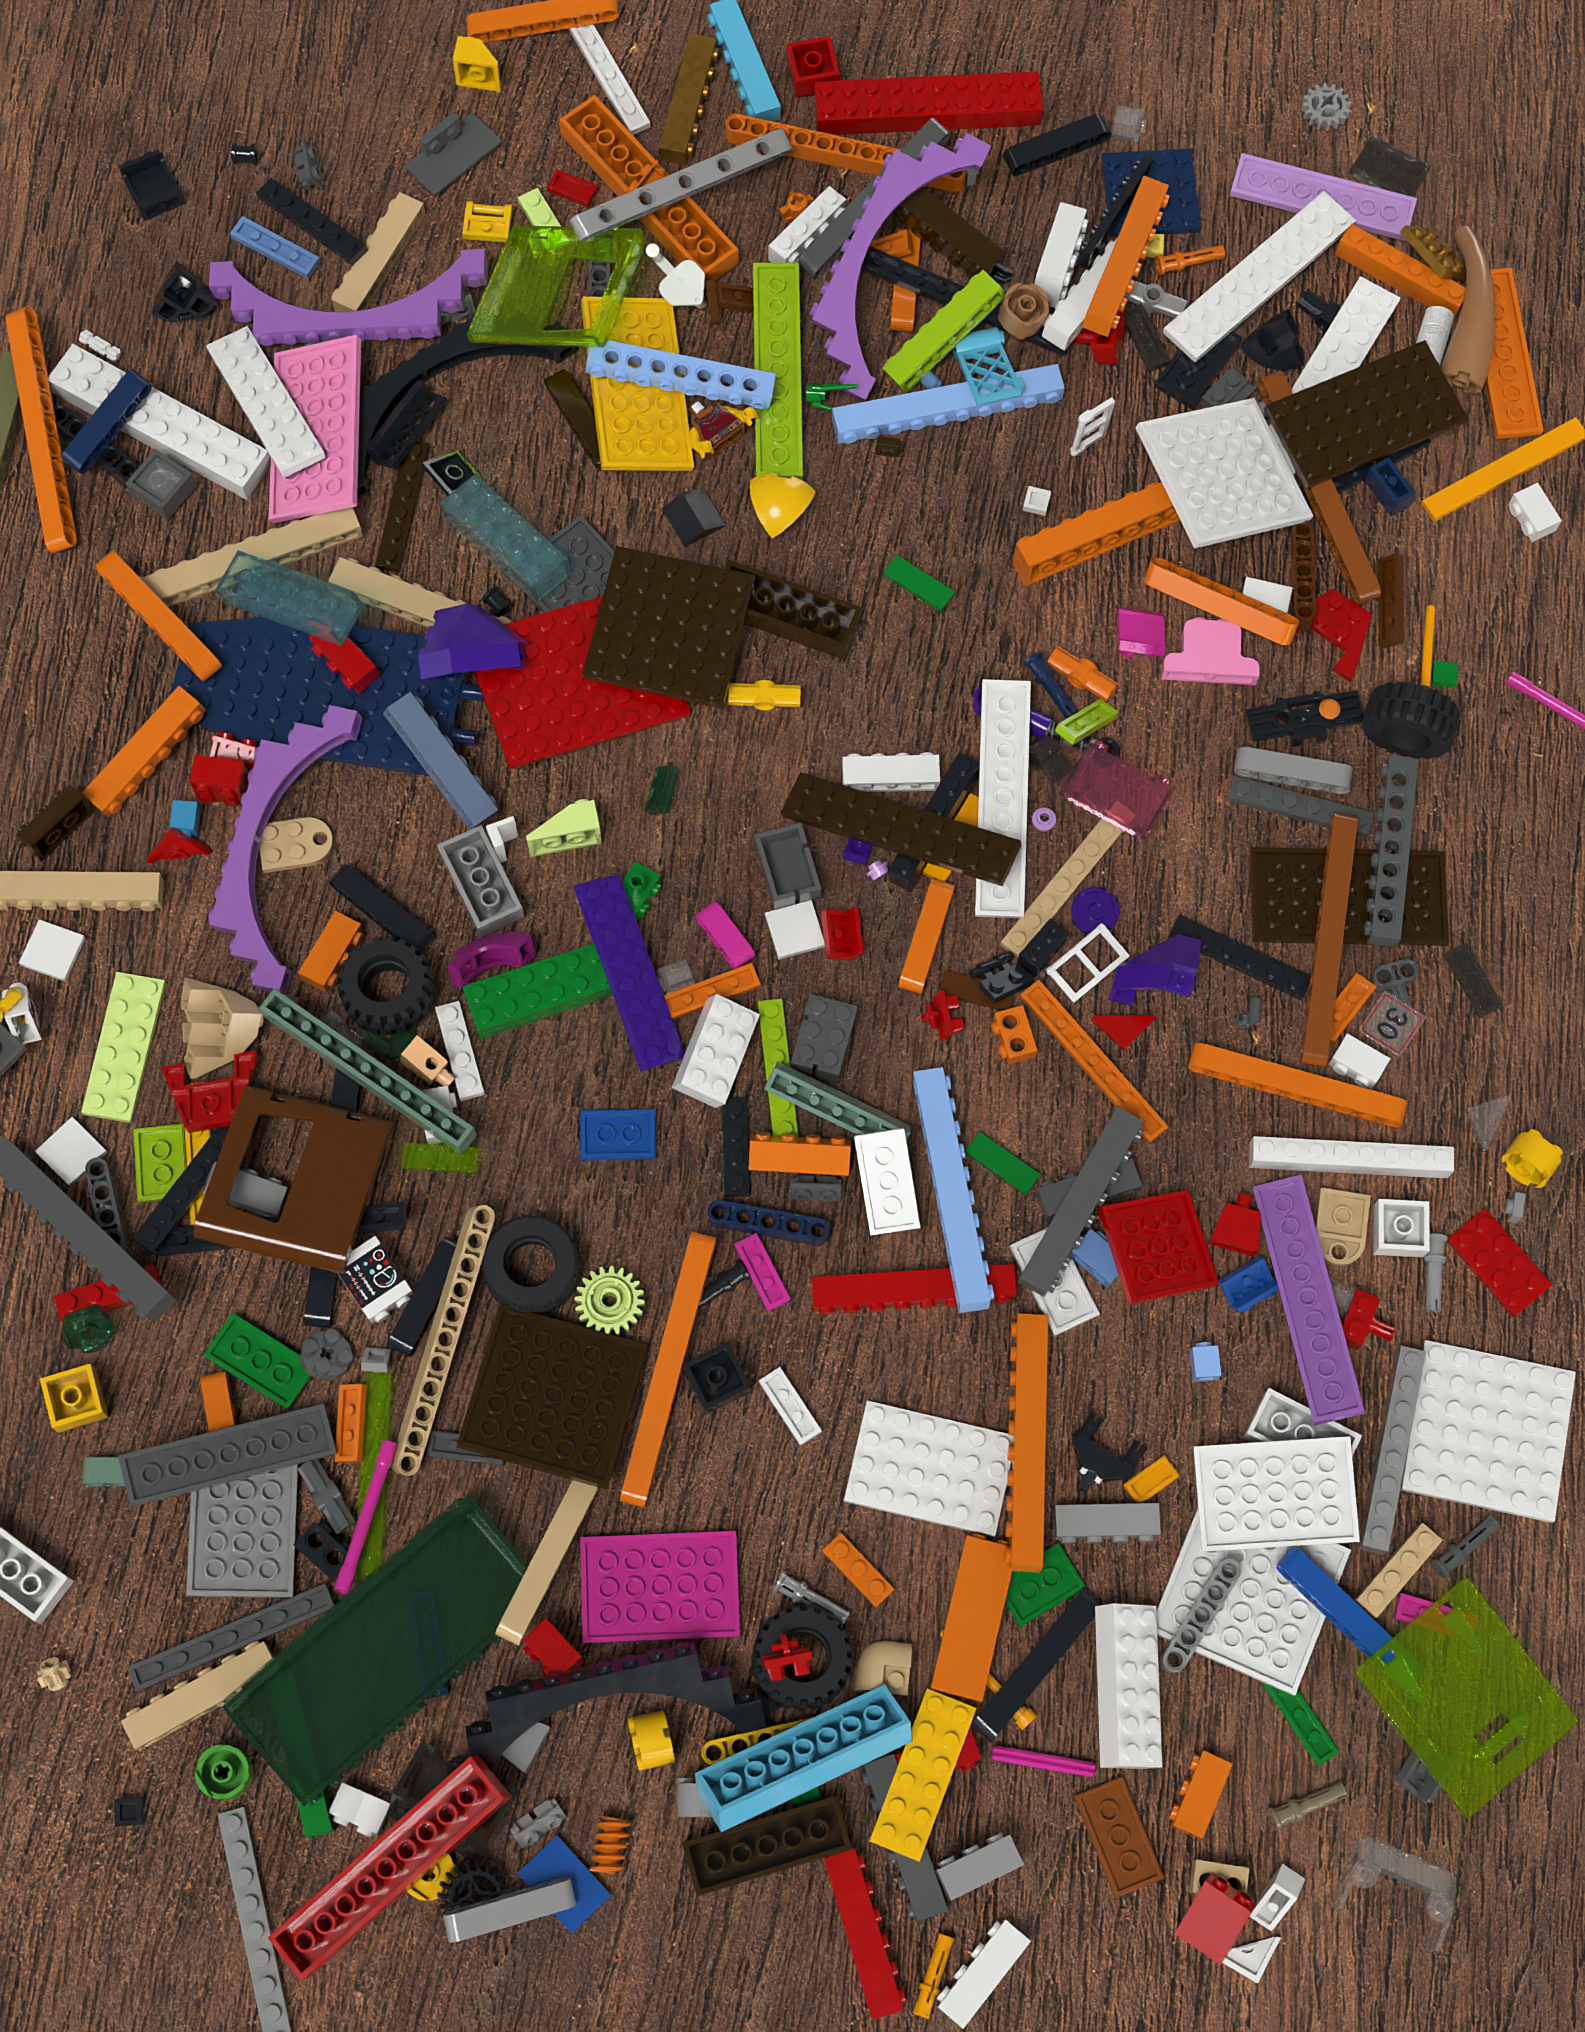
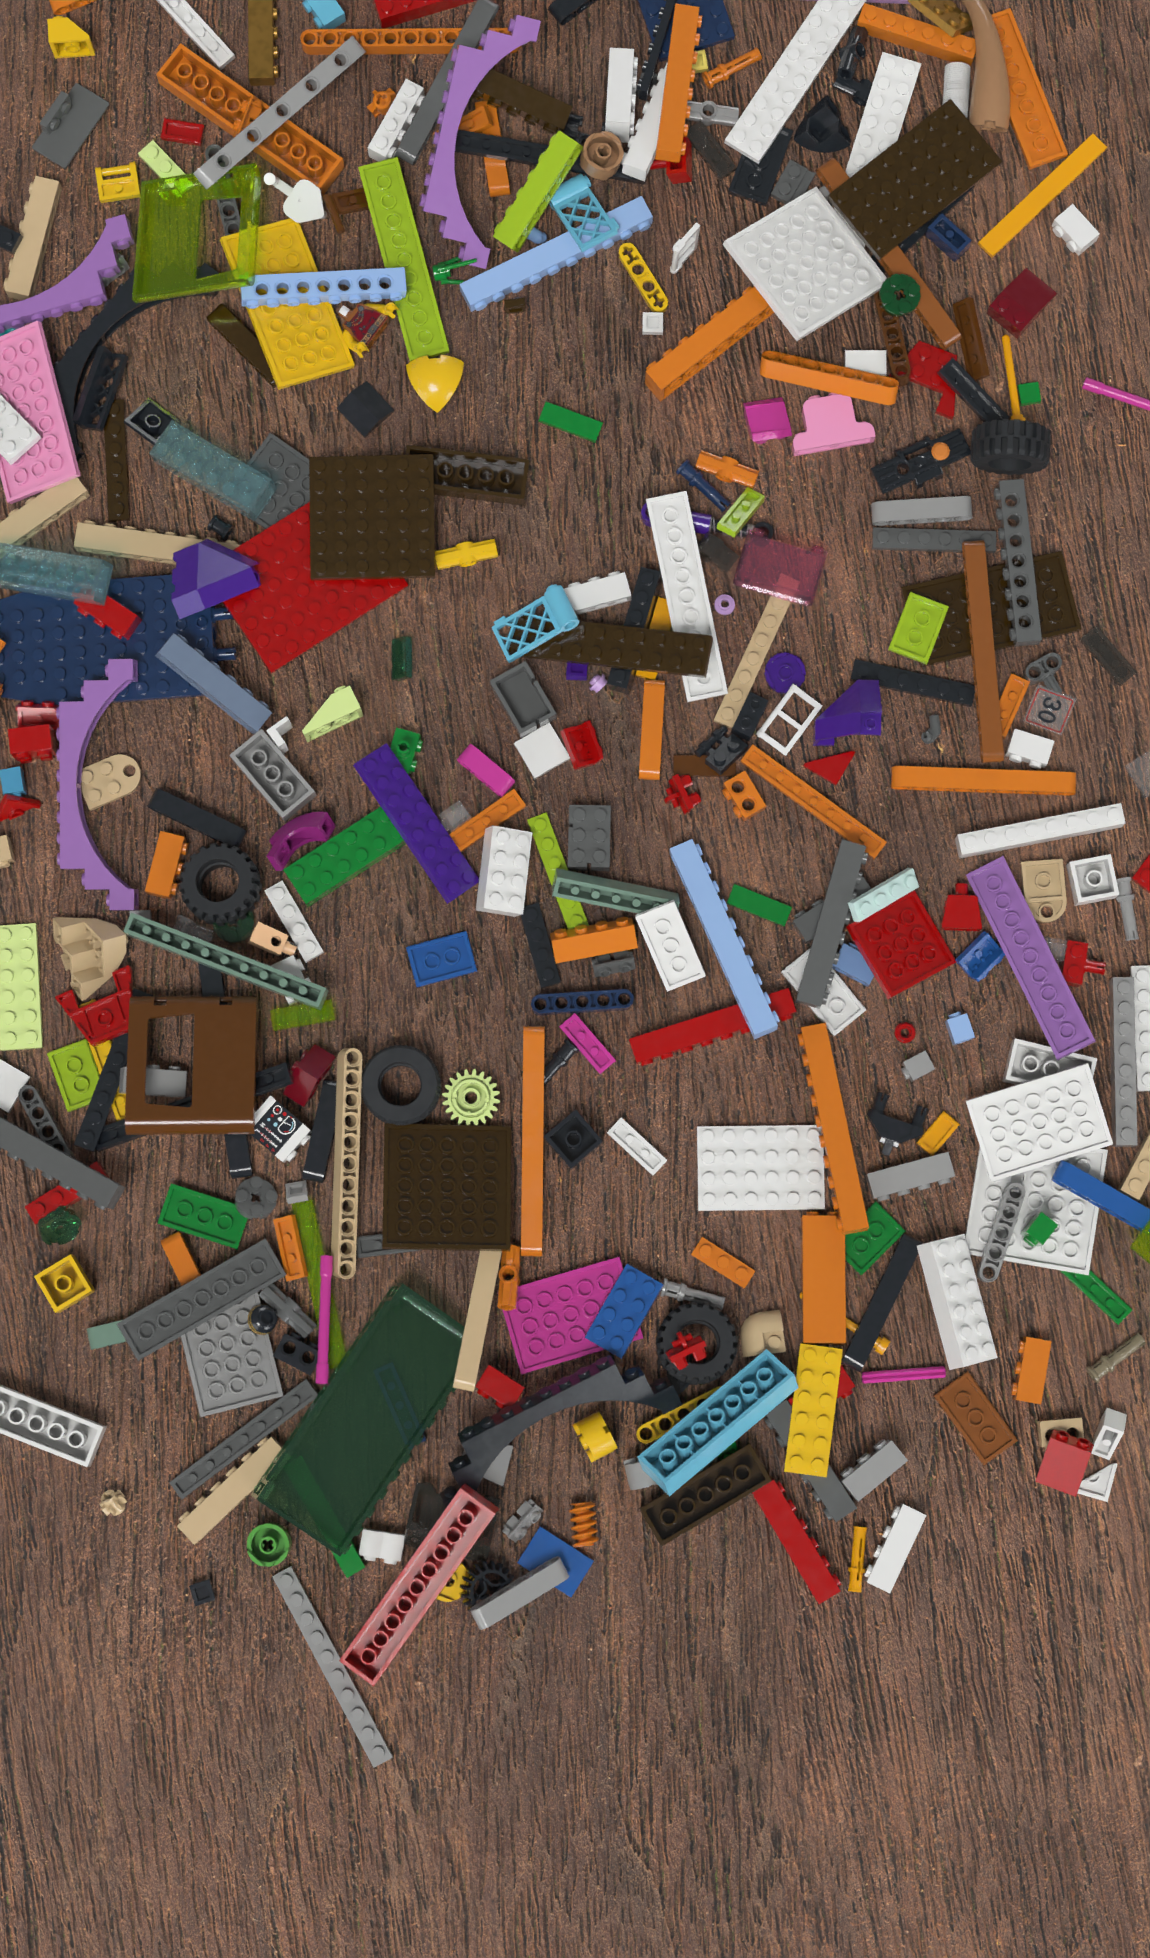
camera: 10 degrees left, 10 degrees up
(293, 1499) = (262, 1319): none -> black piece
(426, 1225) = (308, 1074): none -> dark red brick
(595, 1534) = (509, 1288): none -> orange piece
(725, 1597) = (624, 1311): none -> blue plate
(851, 772) = (560, 613): none -> medium azure piece
(1040, 451) = (641, 279): none -> yellow beam
(1144, 1346) = (909, 1027): none -> red plate
(1144, 1394) = (917, 1066): none -> light grey brick
(1150, 1183) = (883, 894): none -> light aqua plate
(1247, 1622) = (1038, 1230): none -> green brick
(1260, 896) = (918, 628): none -> lime tile
(1324, 543) = (910, 290): none -> dark green plate
(1326, 272) = (852, 53): none -> black piece
(1375, 650) = (971, 392): none -> black plate
(1455, 575) = (1021, 303): none -> dark red slope

